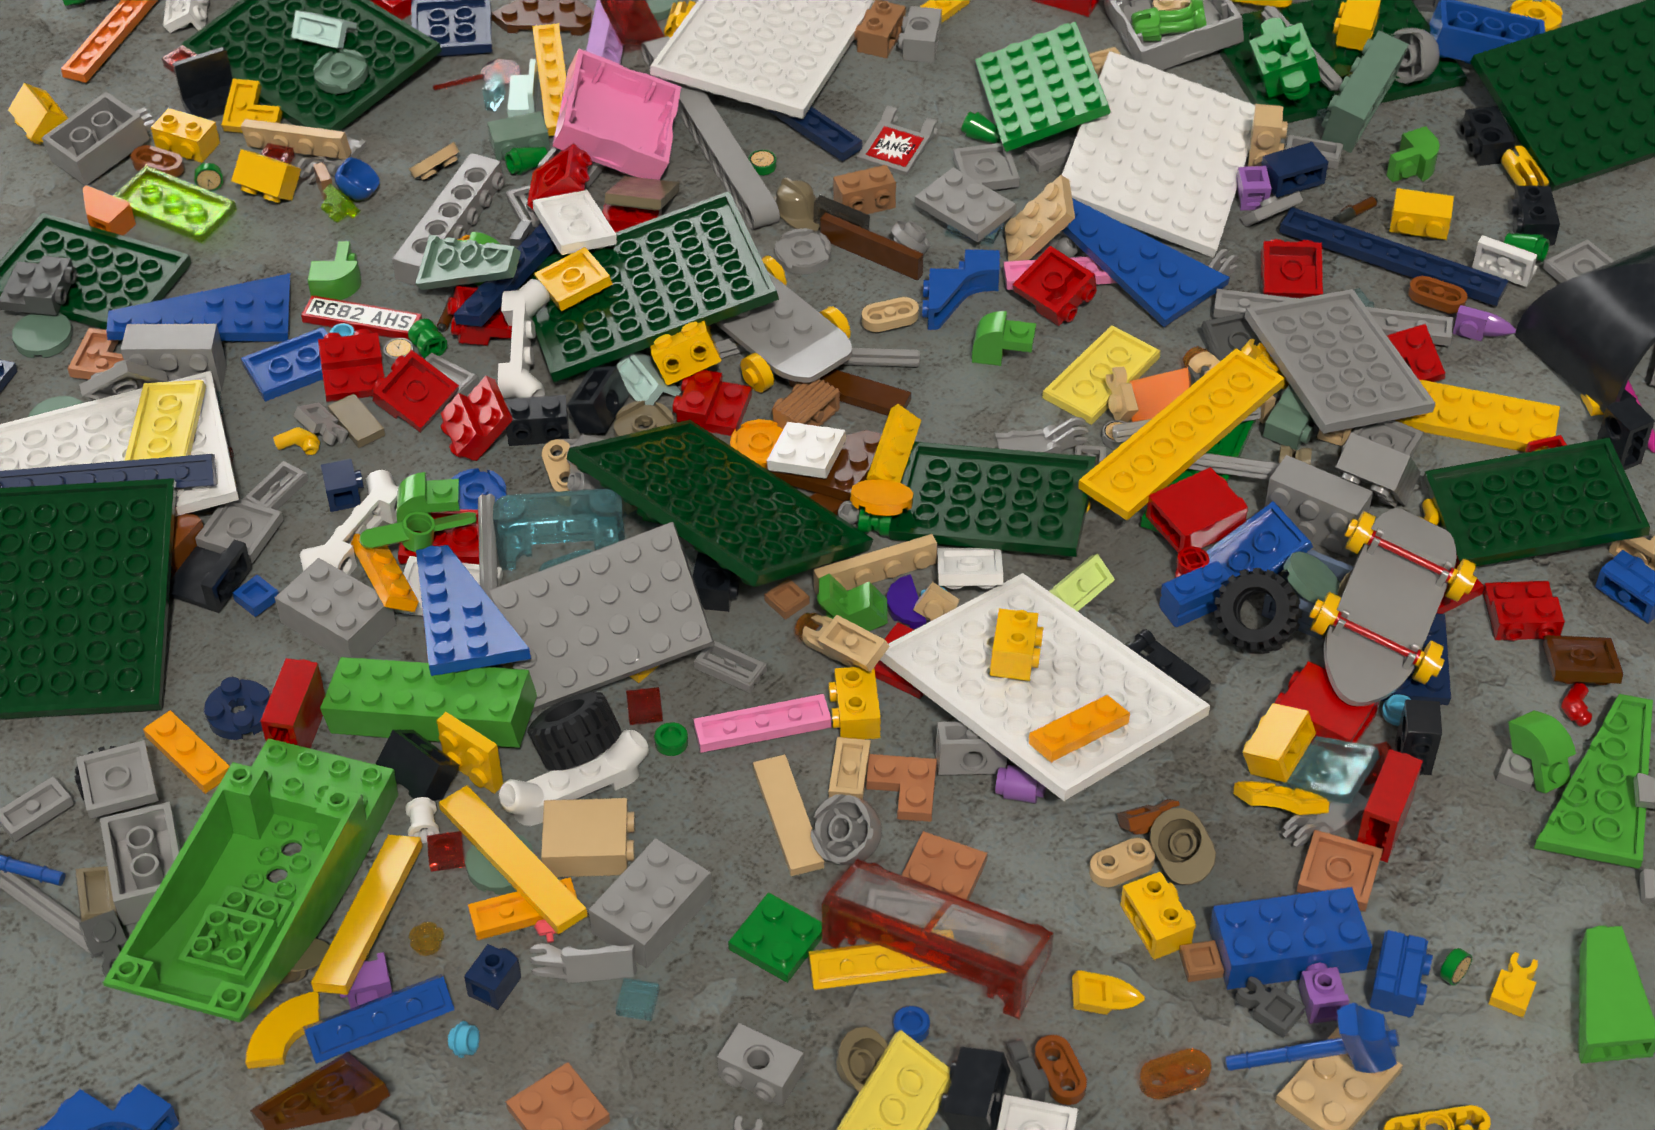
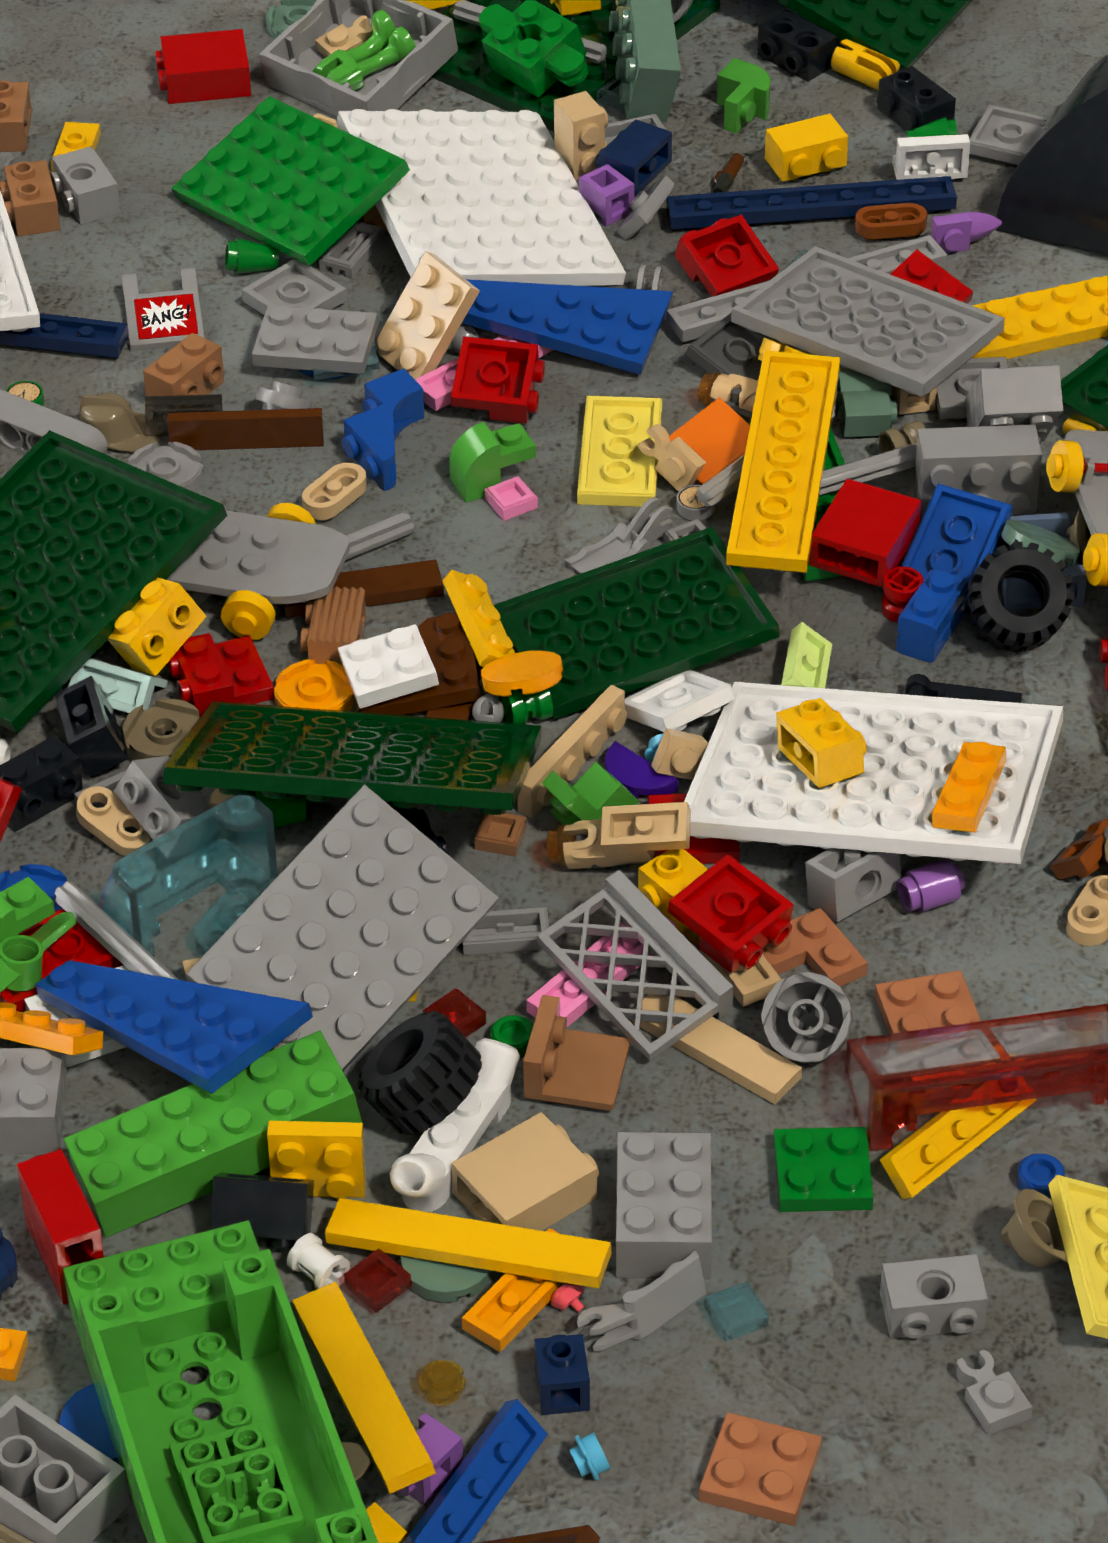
camera: 35 degrees left, 5 degrees down
(683, 773) = (572, 1064): none -> medium nougat bracket
(801, 727) = (669, 949): none -> light grey fence
(857, 732) = (733, 914): none -> red plate
(1000, 373) = (511, 498): none -> bright pink tile

